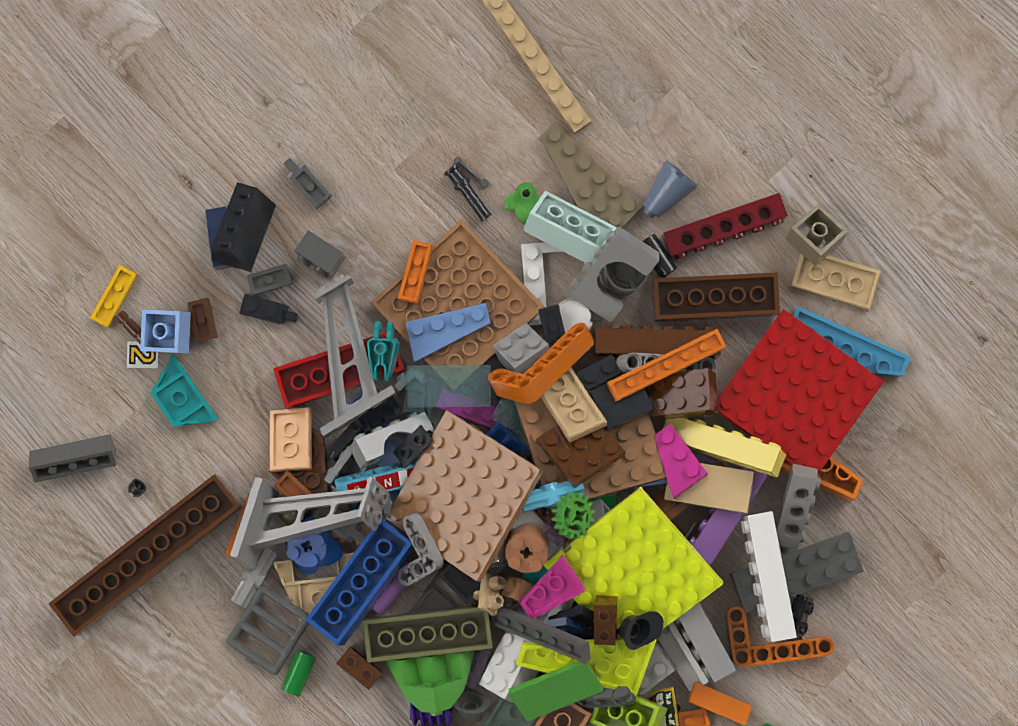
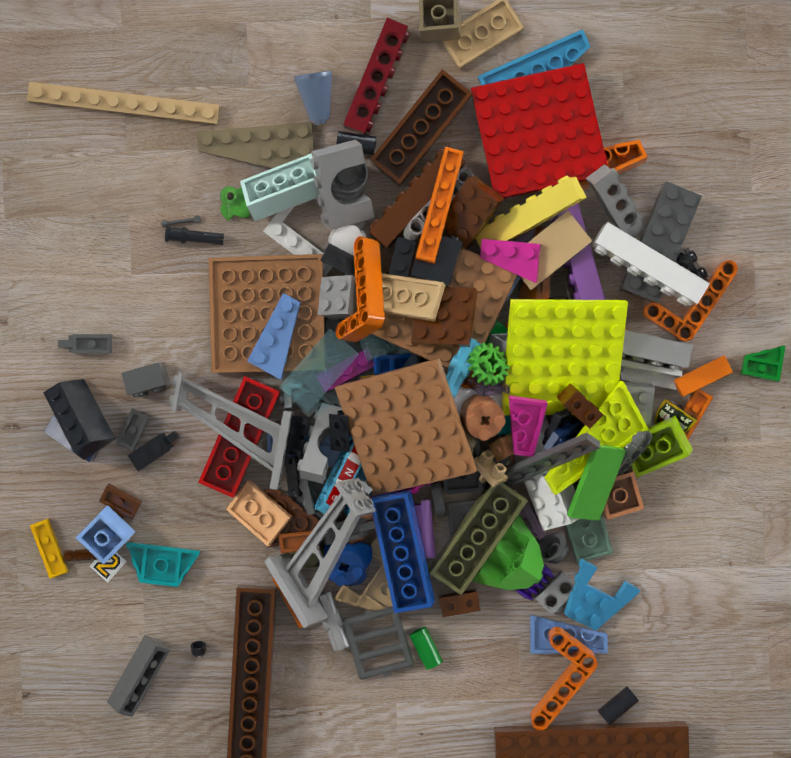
camera: 45 degrees left, 5 degrees up
(383, 351) = (254, 395): teal hinge -> none
(415, 272) = (217, 323): orange tile -> none
(425, 554) = (423, 490): light grey beam -> none
(640, 629) = (608, 387): black piece -> none

